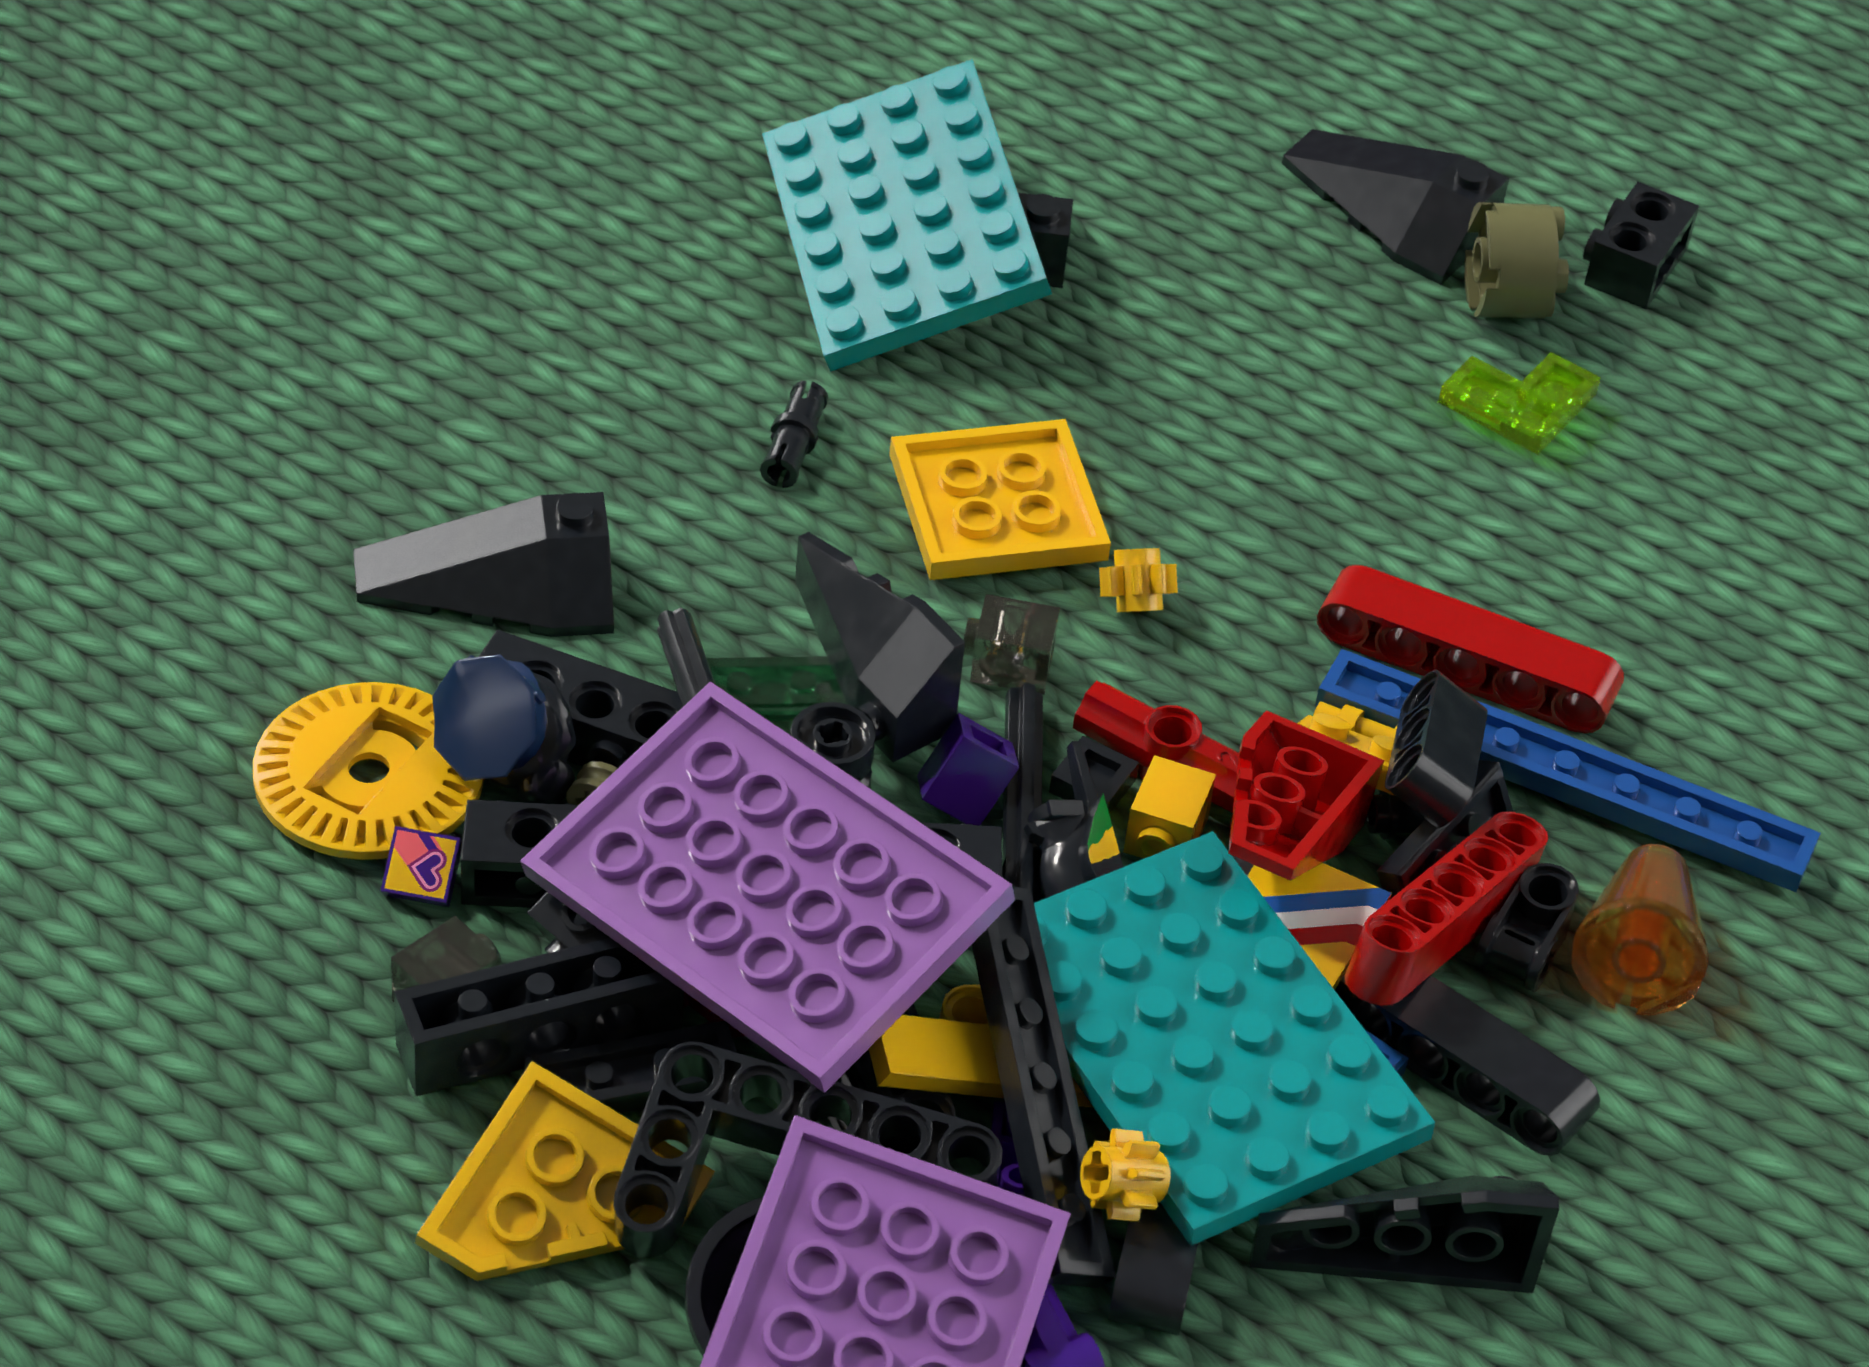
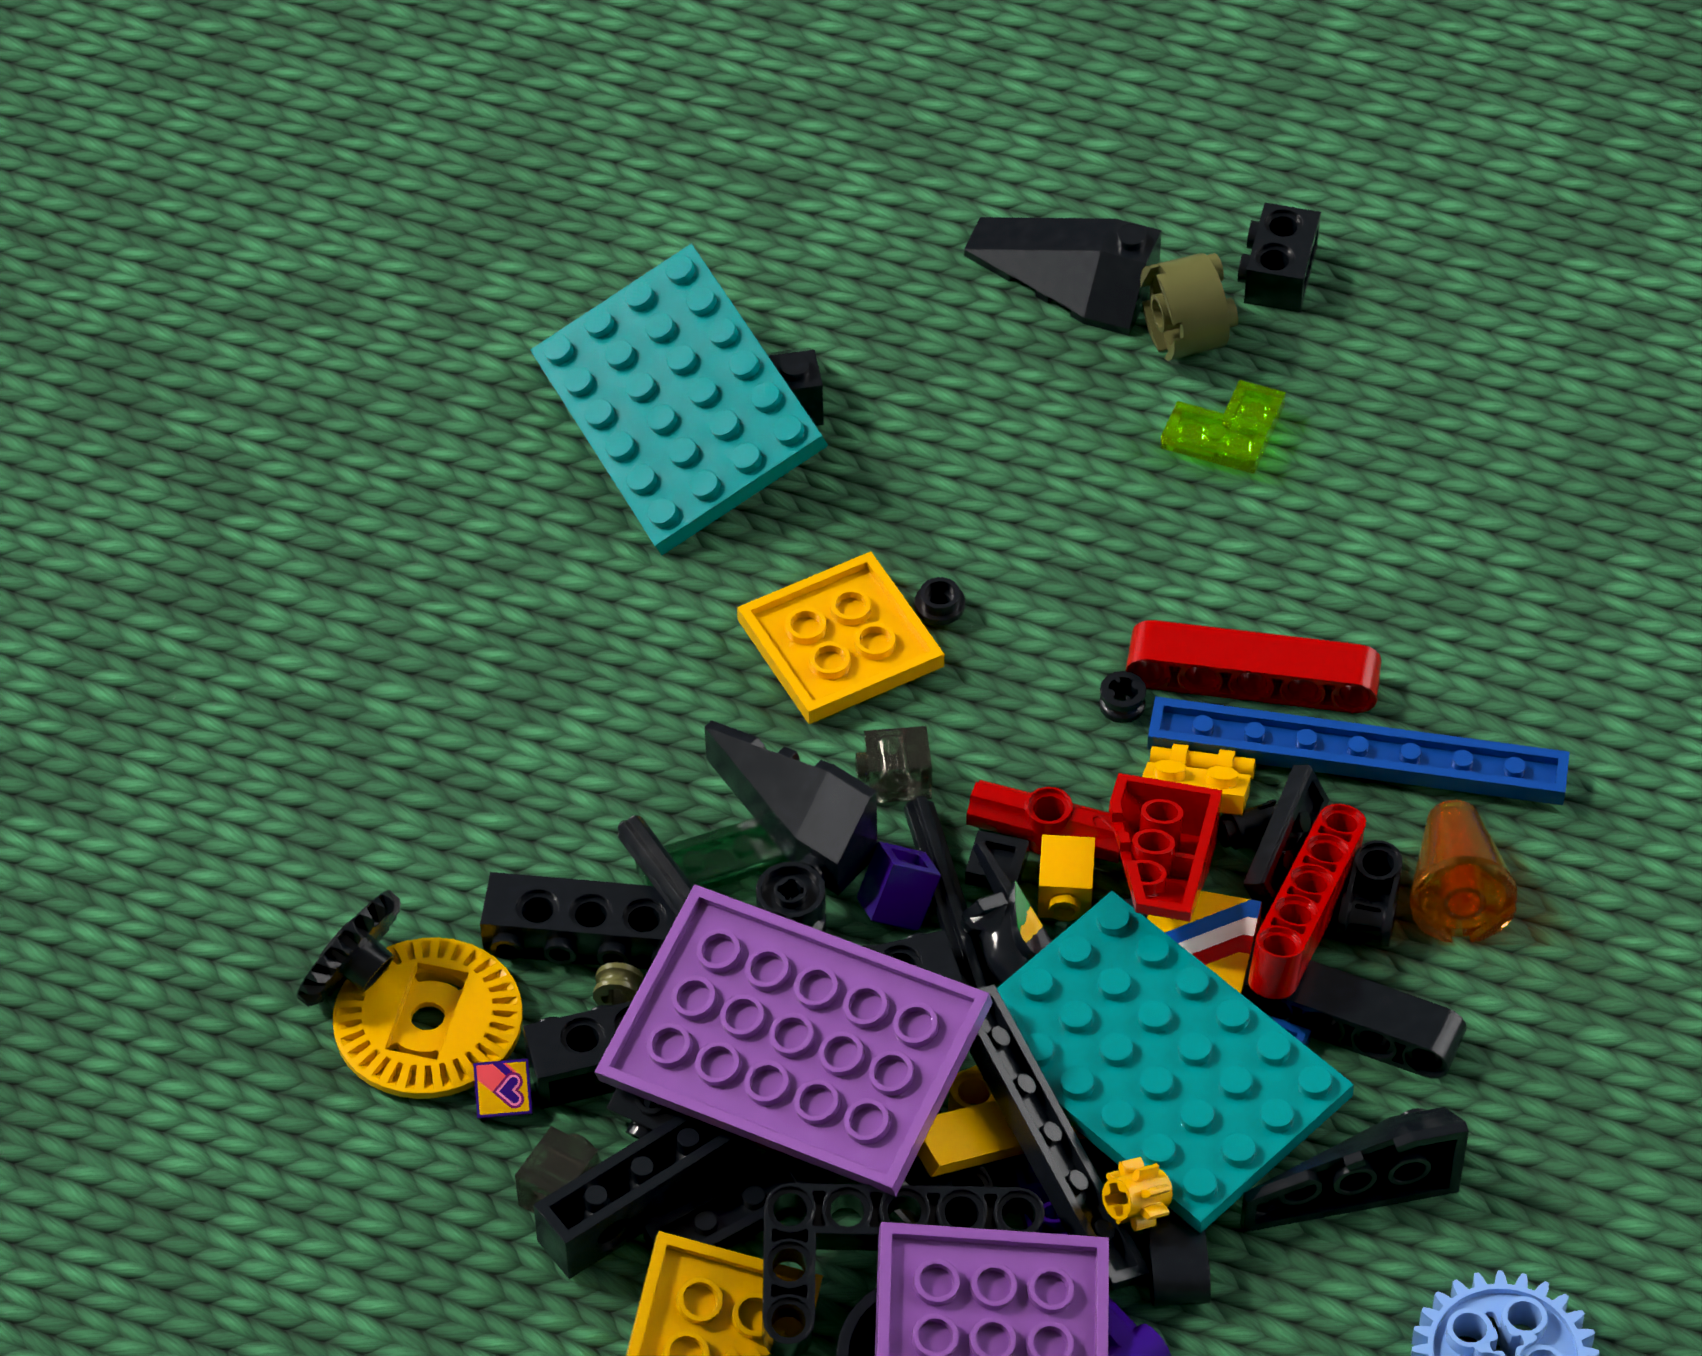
camera: 10 degrees left, 5 degrees up
(302, 667) = (353, 952): none -> black gear
(505, 727) = (530, 956): dark blue piece -> none
(517, 563) = (478, 805): black wedge -> none
(794, 434) = (656, 623): black pin -> none
(1127, 491) = (939, 601): none -> black plate
(1138, 580) = (976, 681): yellow gear -> none
(1304, 658) = (1119, 710): none -> black bush
(1436, 749) = (1260, 770): black beam -> none

